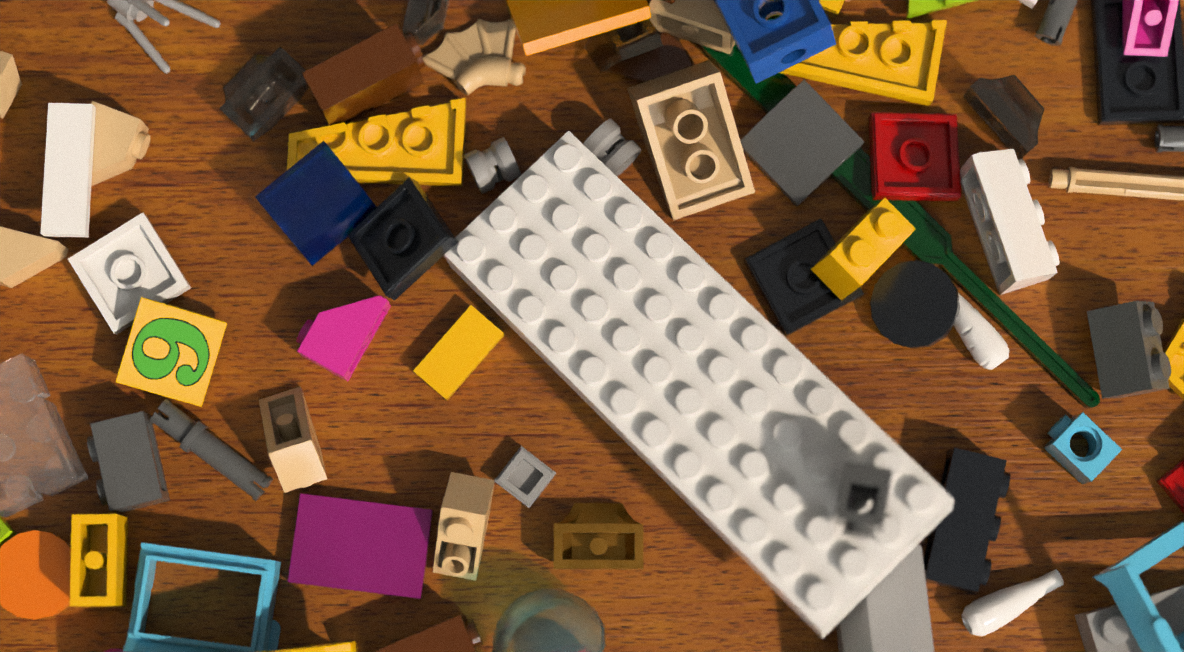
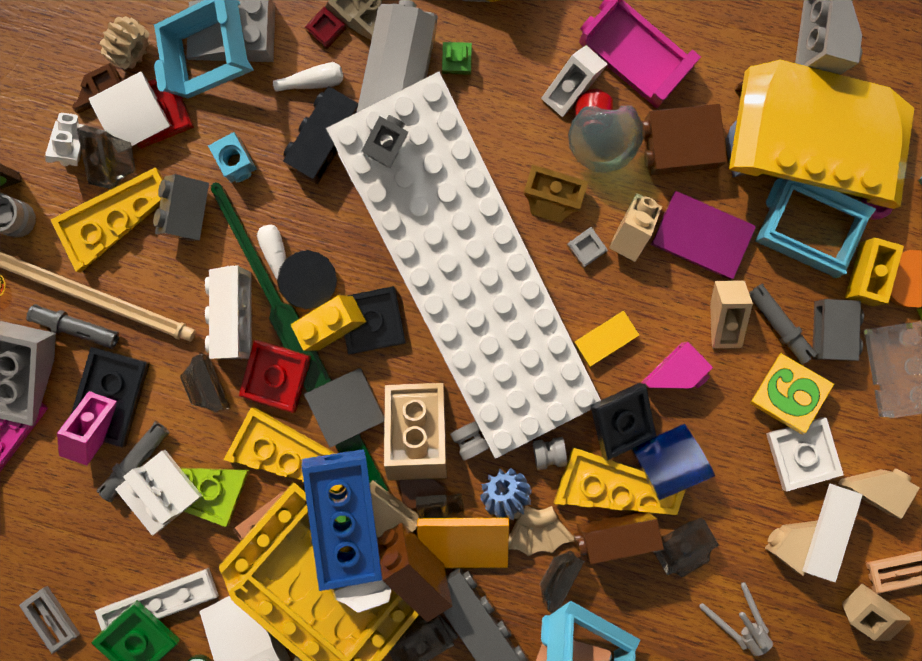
camera: 155 degrees left, 5 degrees up
(536, 72) = (506, 494): none -> medium blue gear

